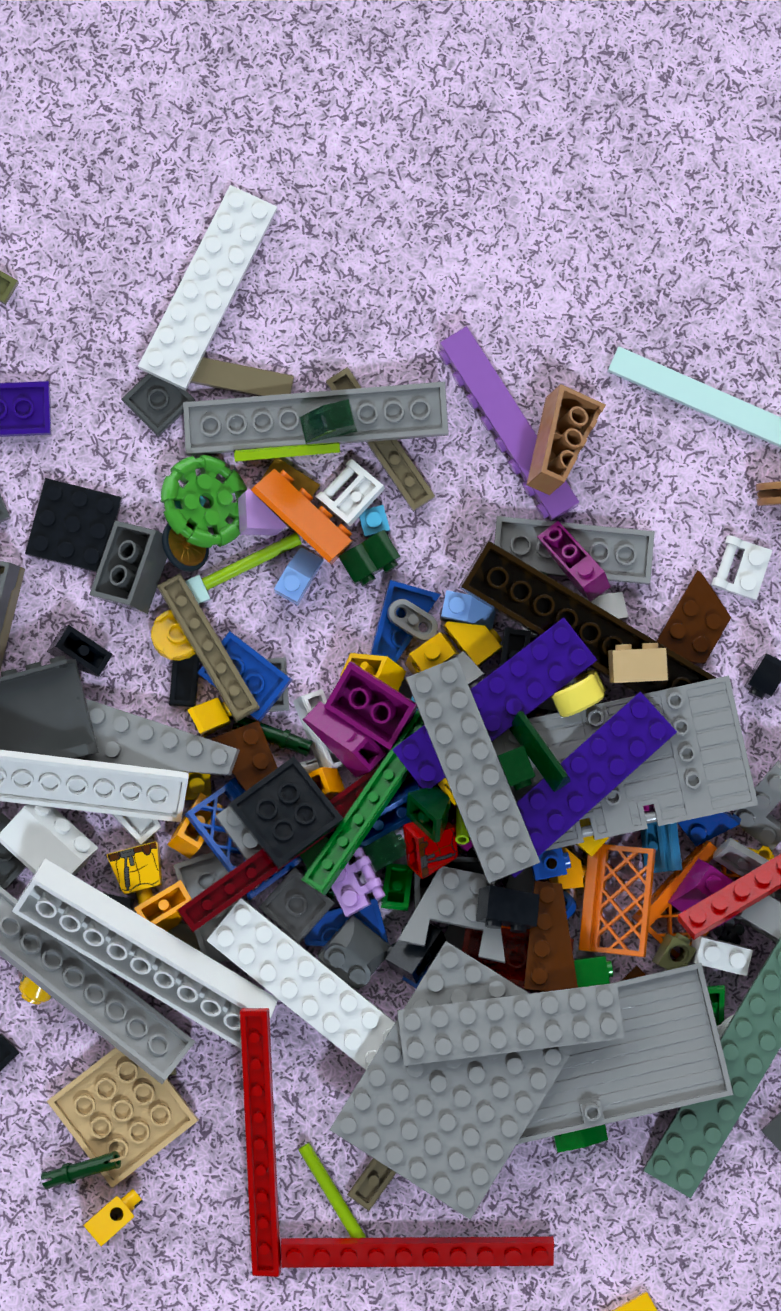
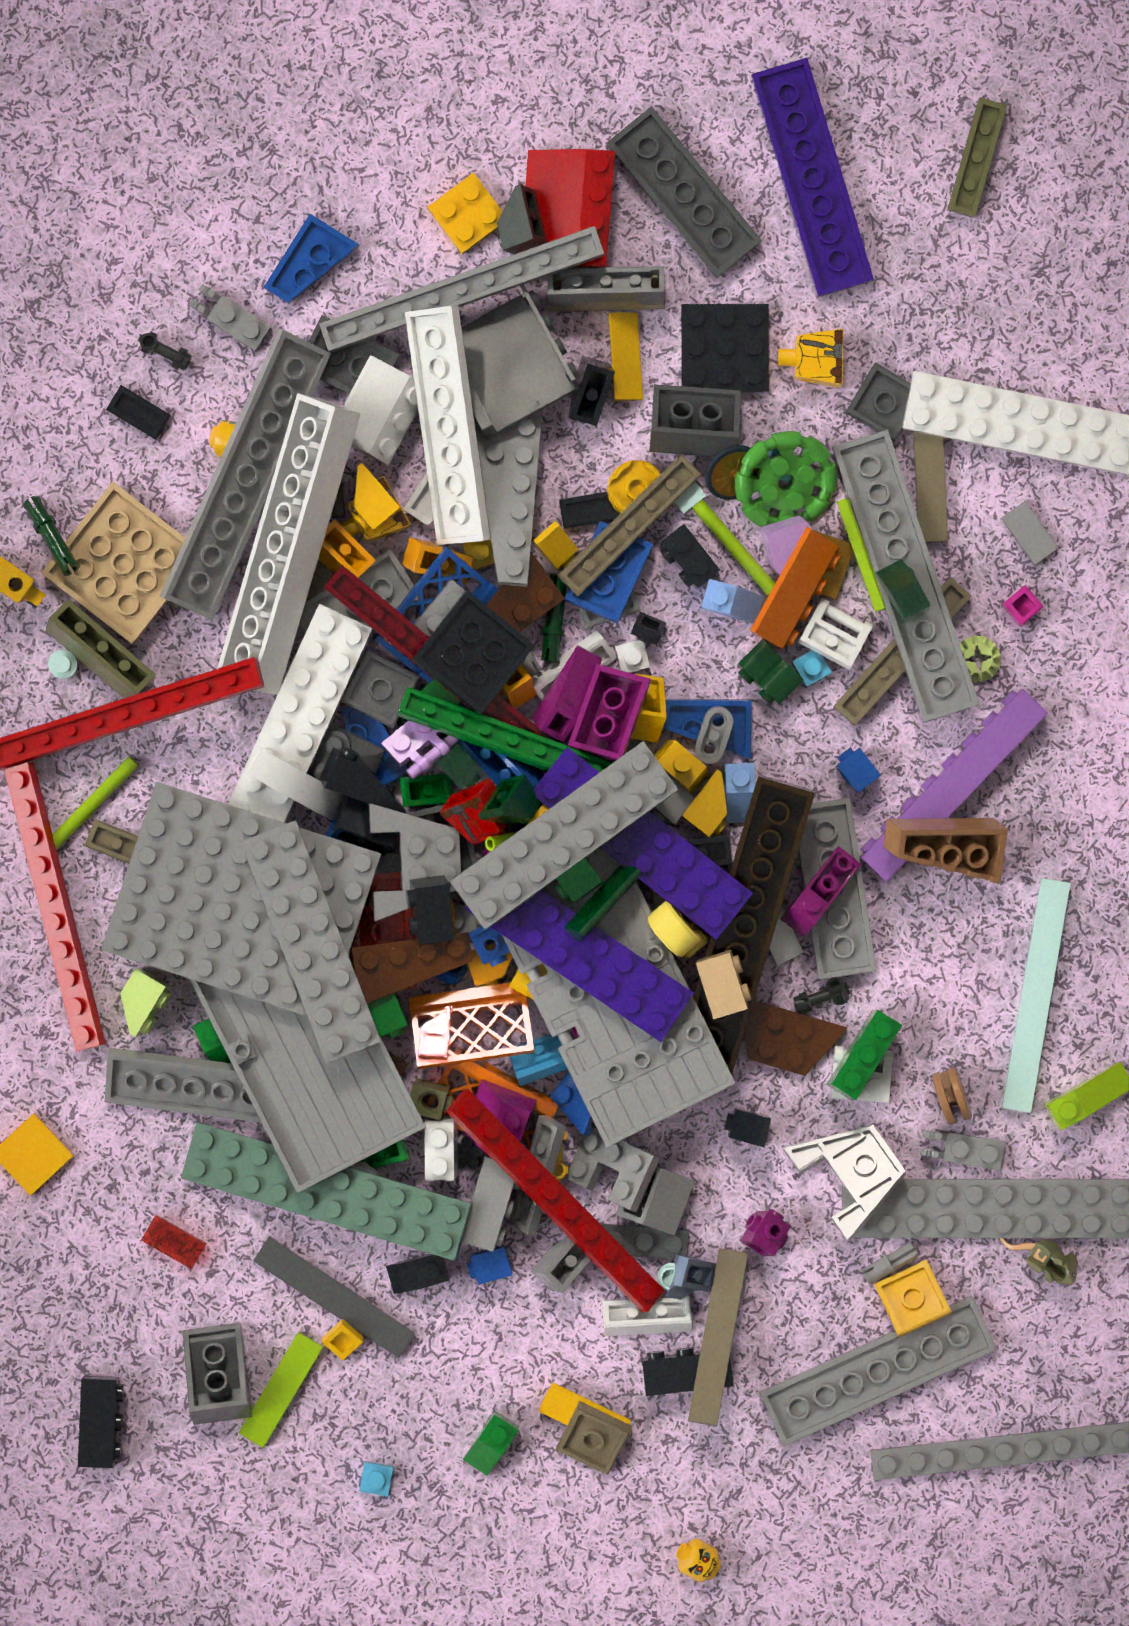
camera: 80 degrees right, 5 degrees up
(57, 614) = (625, 356): none -> yellow slope
(104, 448) = (816, 358): none -> yellow torso
(127, 869) = (372, 501): none -> yellow slope
(196, 1152) = (99, 651): none -> olive brick
(199, 1188) = (62, 664): none -> light aqua plate
(250, 602) = (689, 557): none -> black brick
(303, 654) = (648, 628): none -> black plate
(305, 305) = (1029, 533): none -> light grey tile
(324, 675) = (632, 656): none -> white plate
(362, 1003) = (294, 783): none -> white slope
(367, 326) = (1022, 605): none -> dark pink slope
(369, 951) = (352, 777): none -> black slope
(396, 366) = (985, 647): none -> yellowish green gear
(474, 503) = (857, 769): none -> blue brick
(520, 1192) = (141, 999): none -> yellowish green slope
(606, 1181) = (176, 1085): none -> light grey plate
(620, 934) = (435, 1036): none -> clear red tile
(664, 570) = (836, 990): none -> pearl dark grey bar
(727, 559) = (864, 1054): none -> green brick
(746, 1219) = (174, 1241): none -> clear red plate

